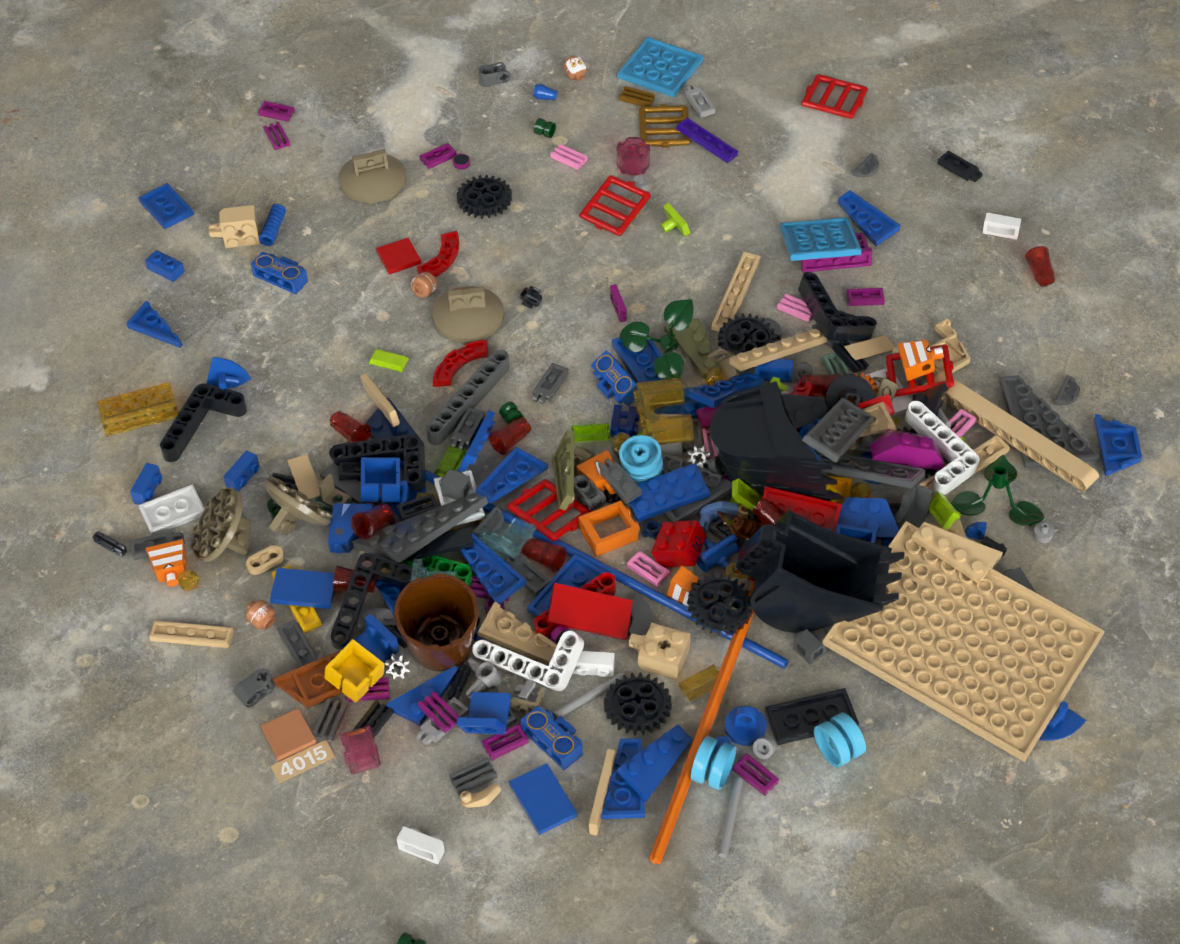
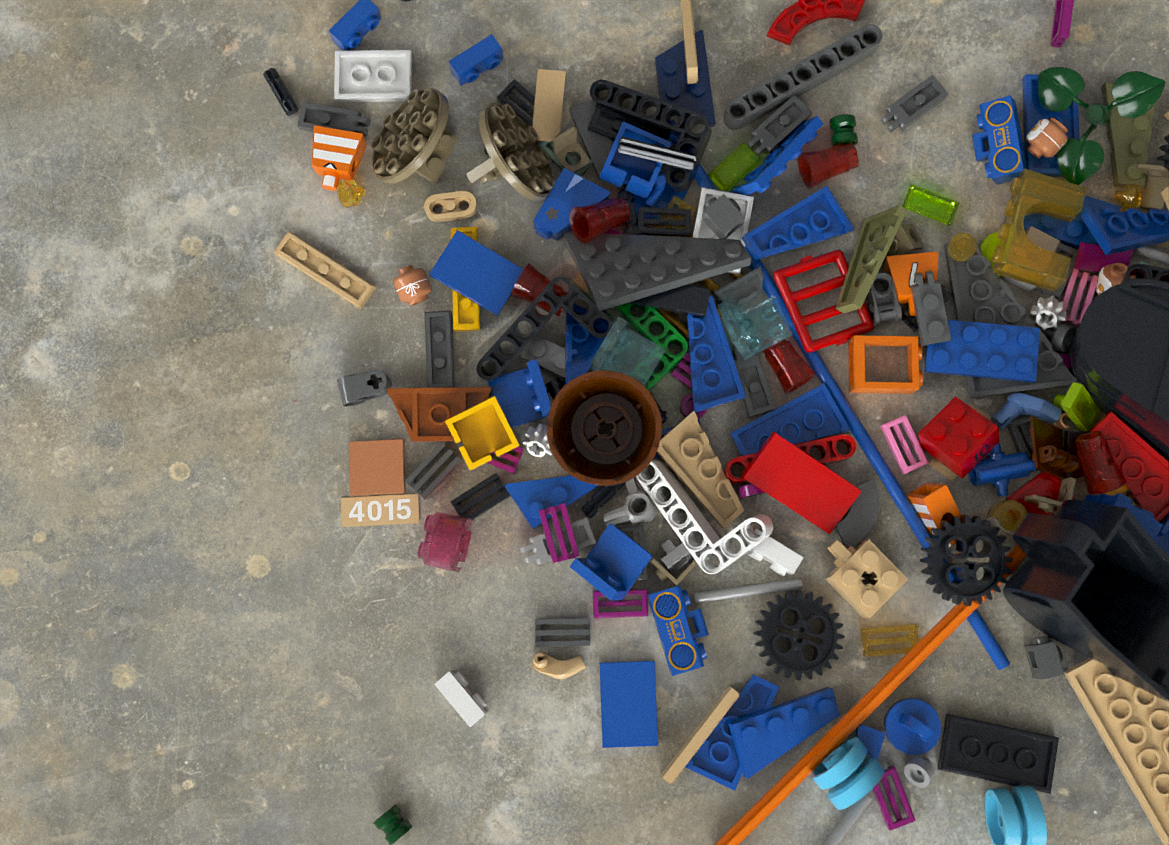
camera: 25 degrees right, 30 degrees up
(350, 427) = (634, 58): clear red plant -> none
(392, 464) = (656, 153): none -> axle
(630, 427) = (983, 226): clear blue brick -> none
(641, 458) = (984, 279): medium azure wheel -> none
(642, 364) = (1046, 138): none -> nougat head
(651, 525) = (940, 384): dark blue plate -> none

